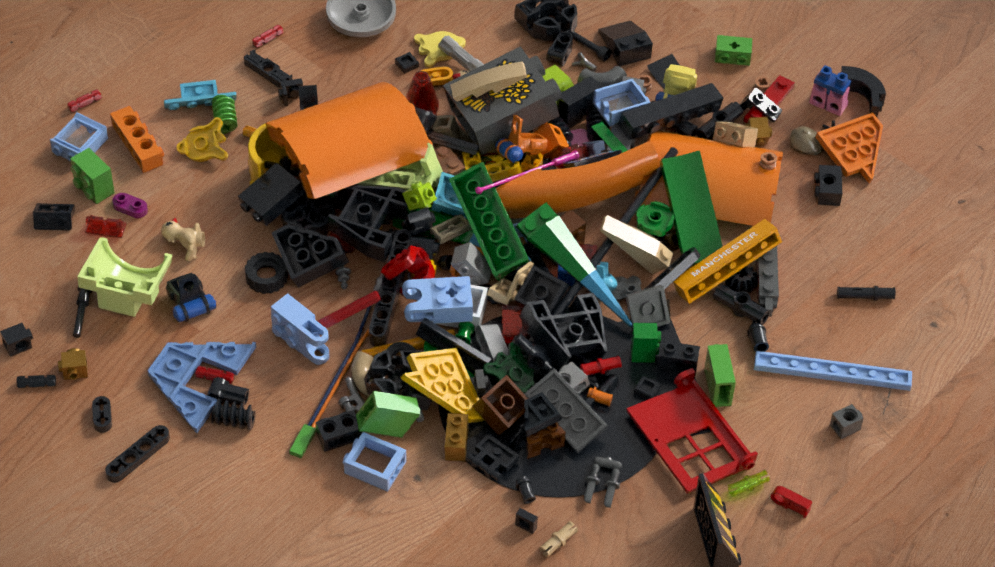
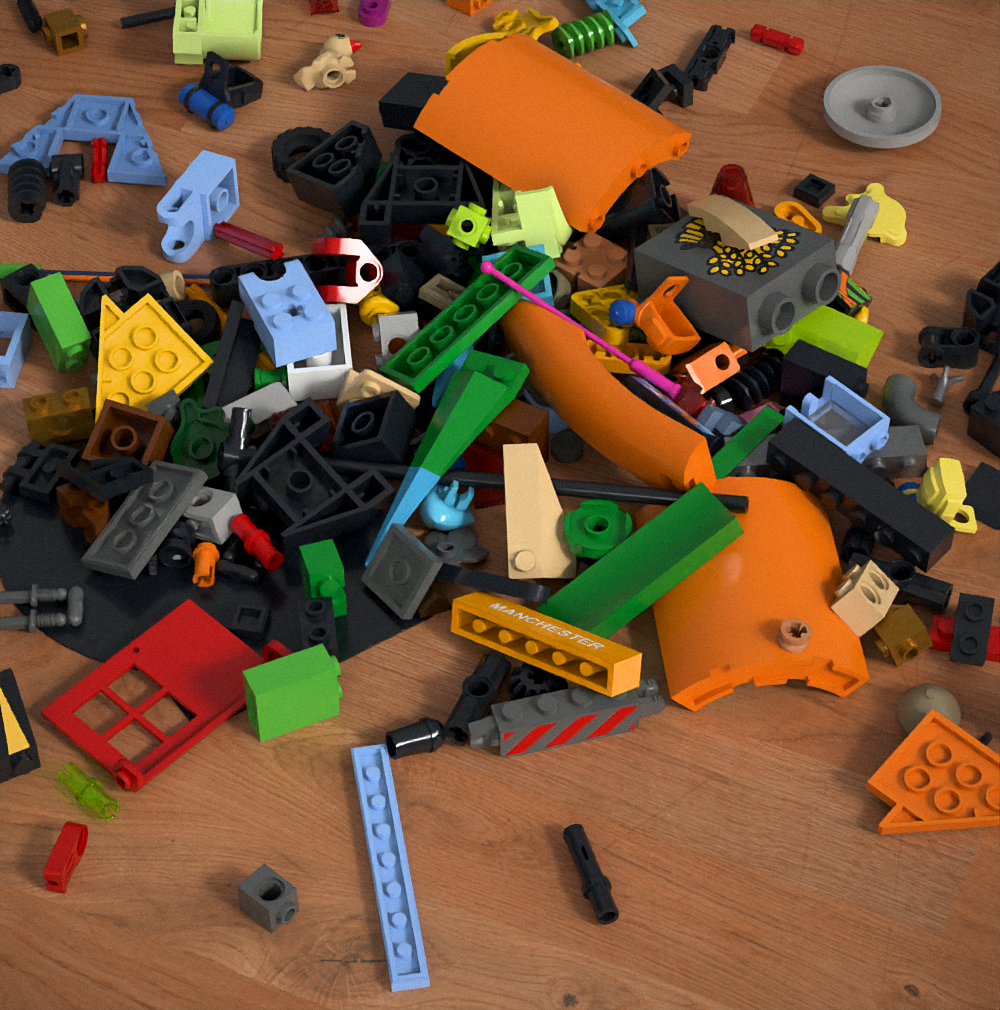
camera: 75 degrees right, 5 degrees down
(828, 185) = (828, 766): black brick -> none

